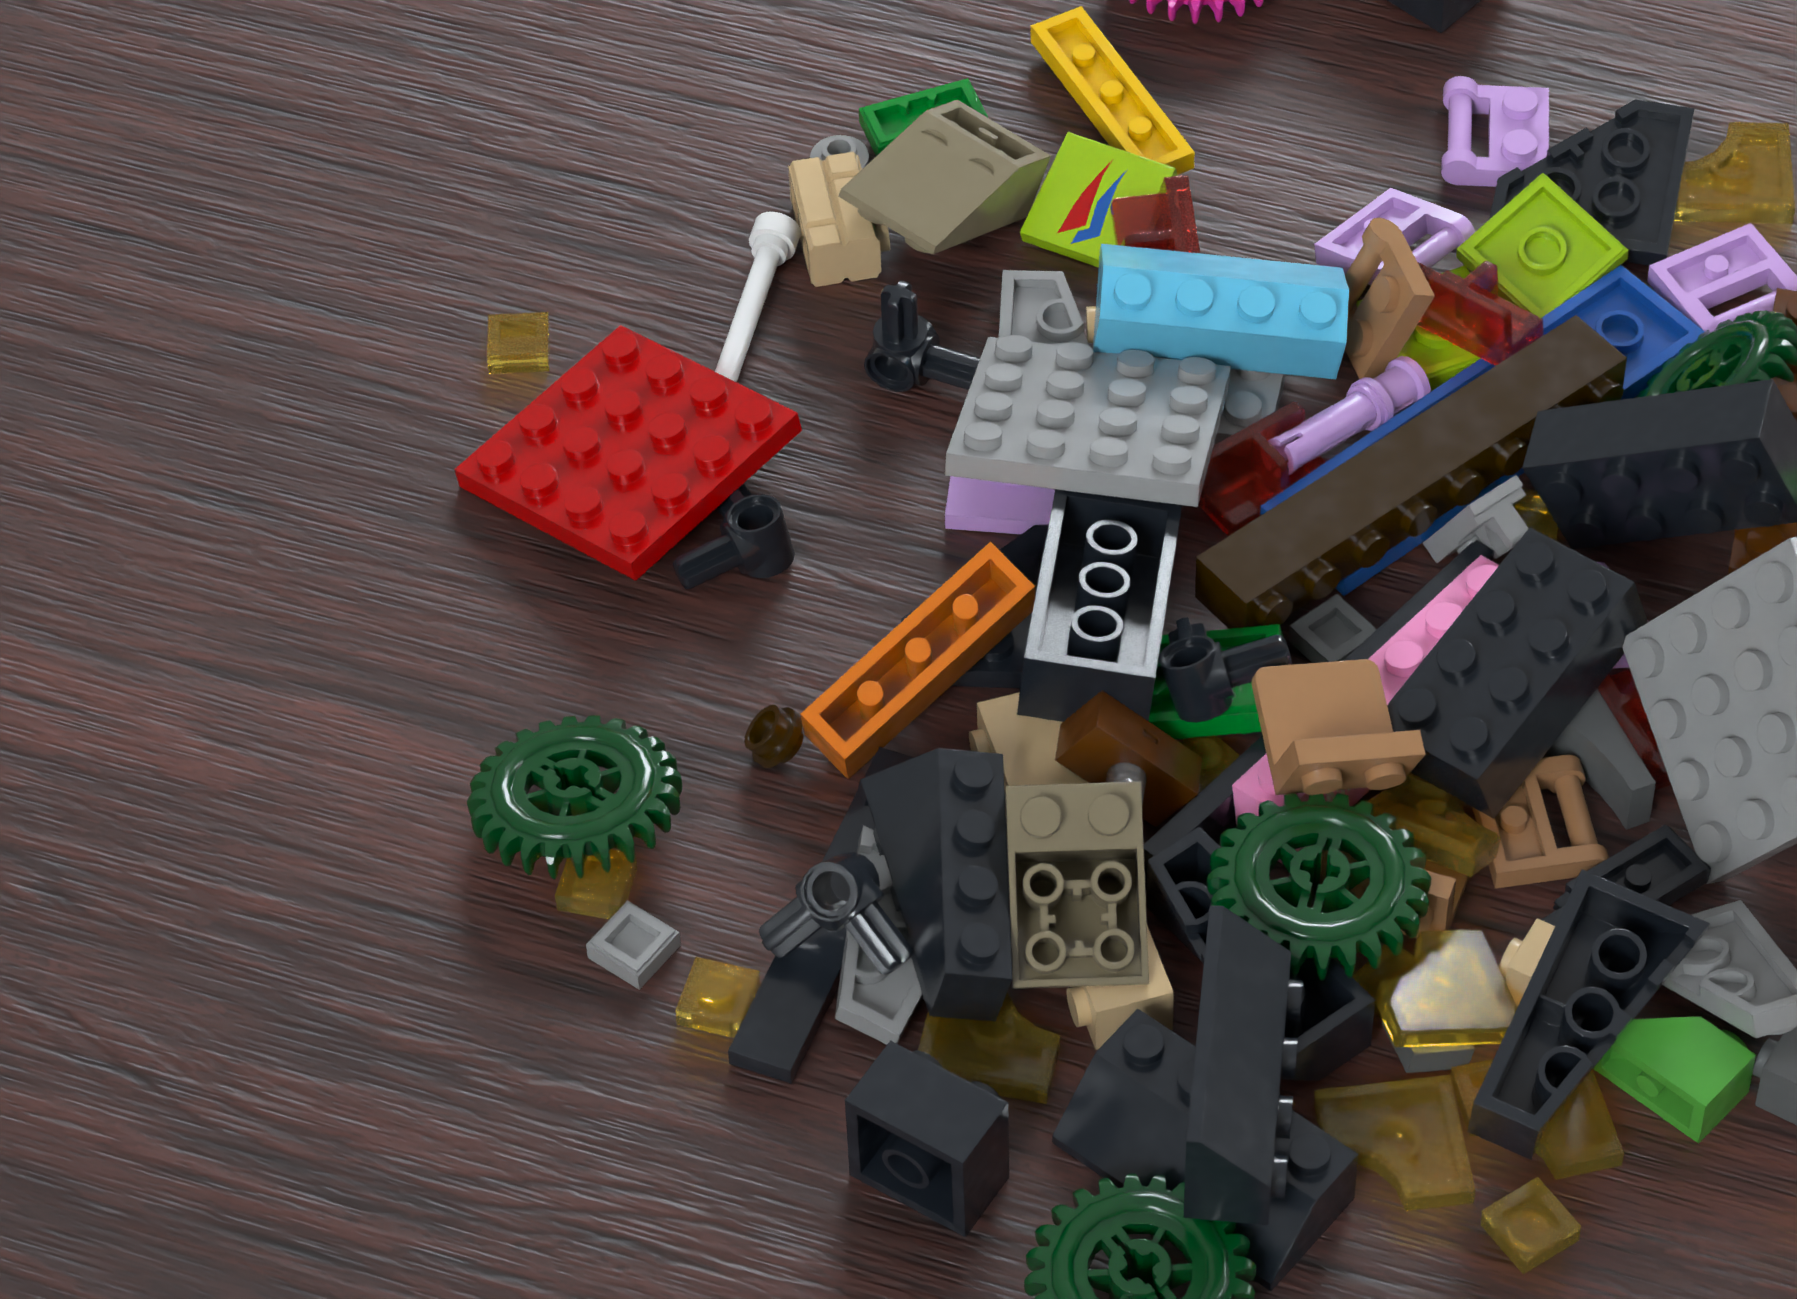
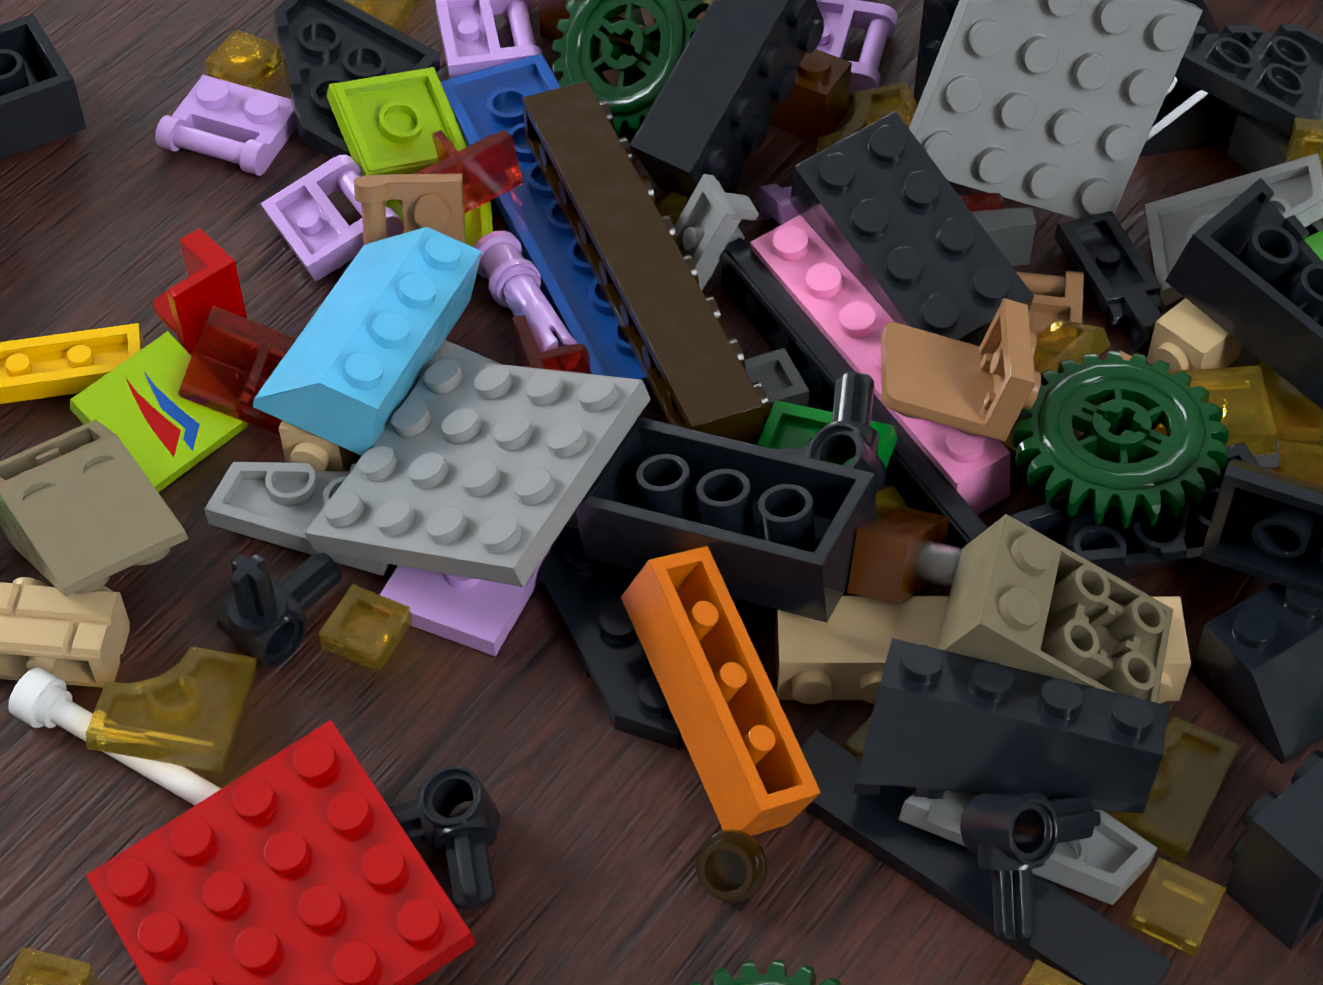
camera: 75 degrees left, 0 degrees up
(790, 331) = (179, 716): none -> clear yellow tile
(843, 1066) = (1177, 906): none -> clear yellow tile
(925, 421) = (365, 627): none -> clear yellow plate
(1224, 182) = (210, 282): none -> red panel
(1590, 107) = (244, 60): none -> clear yellow plate

